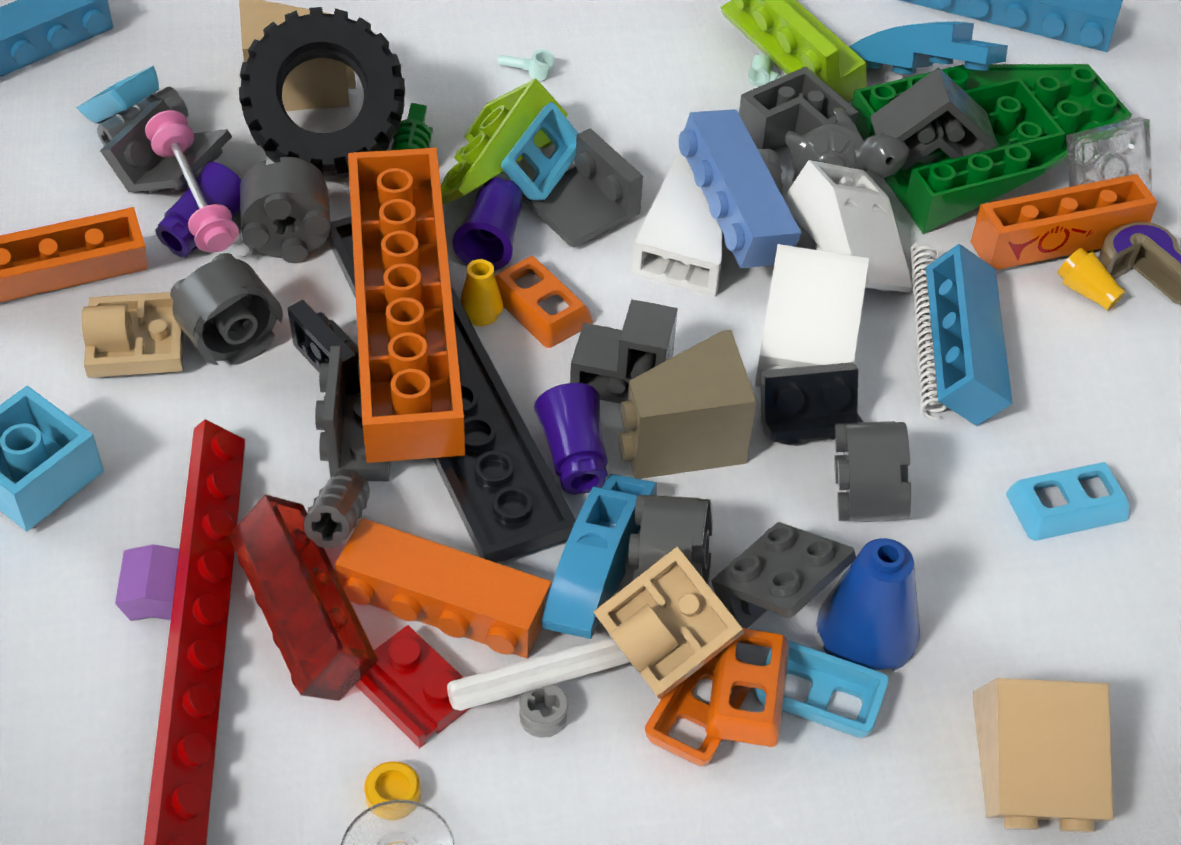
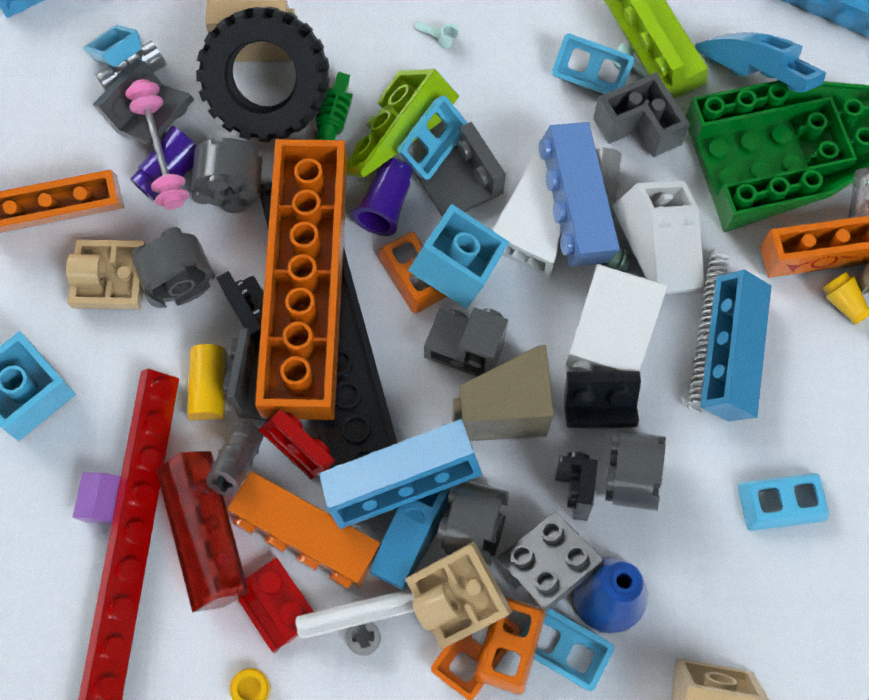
camera: 10 degrees right, 20 degrees up
(283, 439) = (206, 382): none -> yellow brick
(419, 482) = (306, 453): none -> red plate
(481, 293) = (367, 267): yellow cone -> none
(567, 489) = (399, 474): none -> brick
(574, 435) = (417, 402): dark purple plant -> none
(597, 266) = (459, 256): none -> medium azure brick
(730, 62) = (598, 54): none -> medium azure piece
(799, 484) = (581, 473): none -> black bracket
(843, 146) = (667, 161): dark grey animal -> none
(936, 116) = (746, 140): dark grey brick -> none

